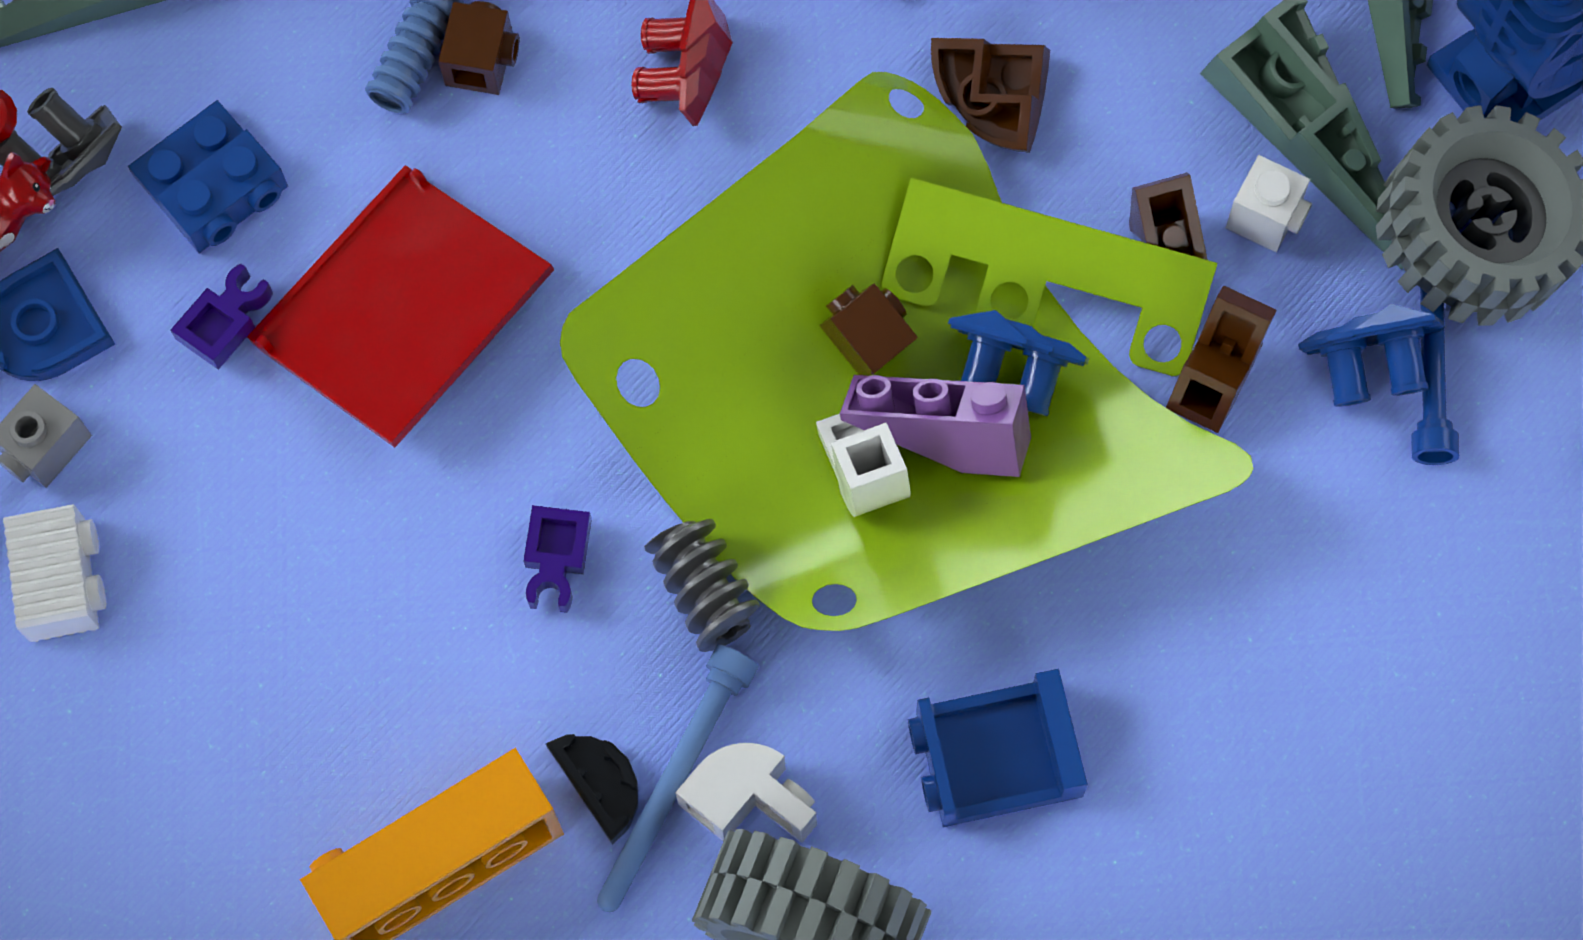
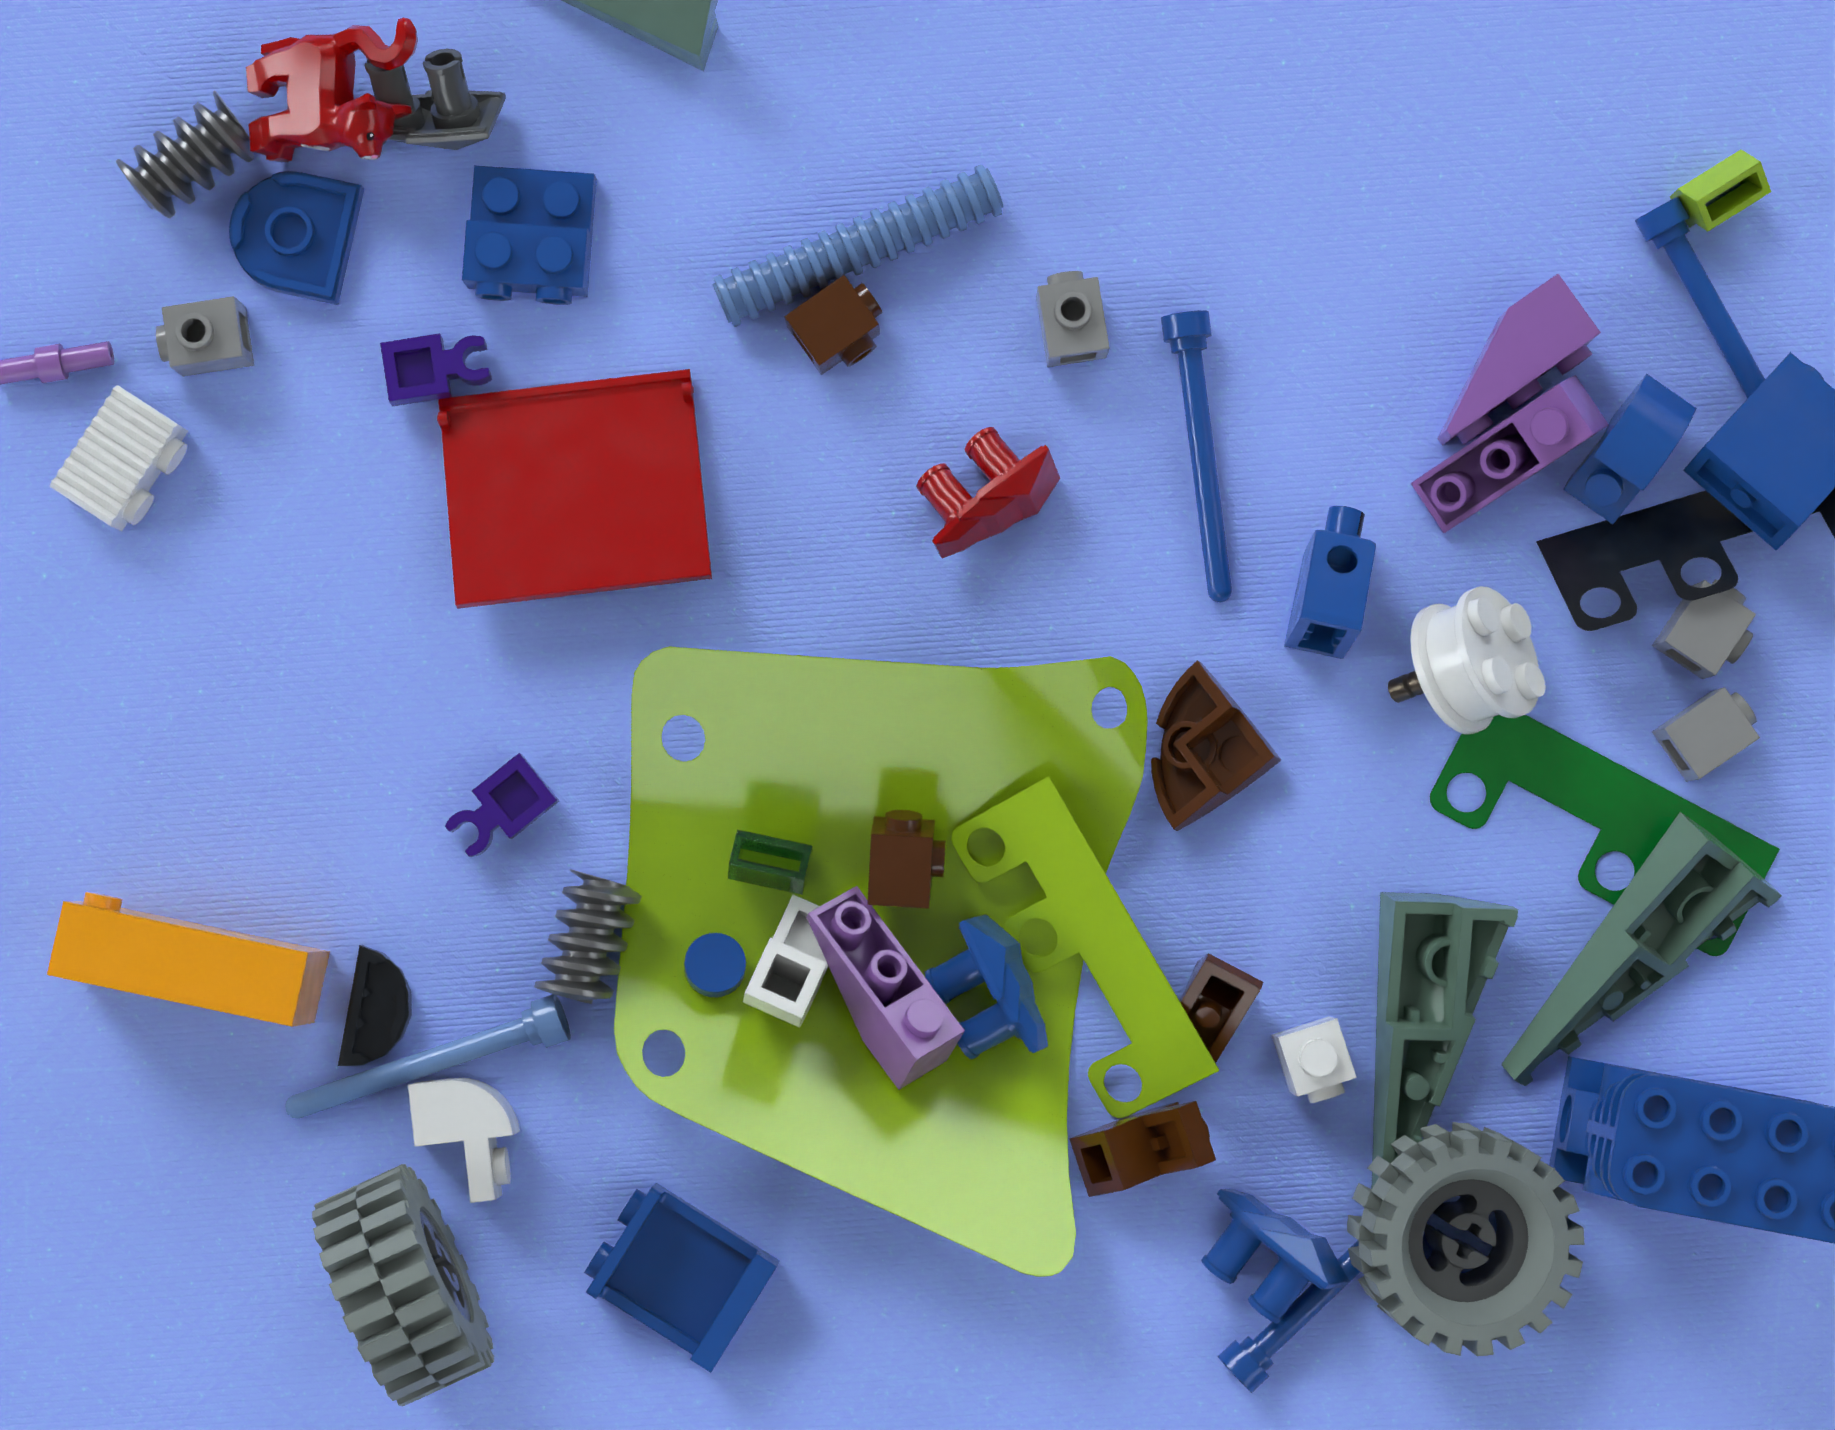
camera: 45 degrees right, 15 degrees up
(778, 412) = (768, 875): none -> clear green piece
(809, 521) = (715, 965): none -> blue tile

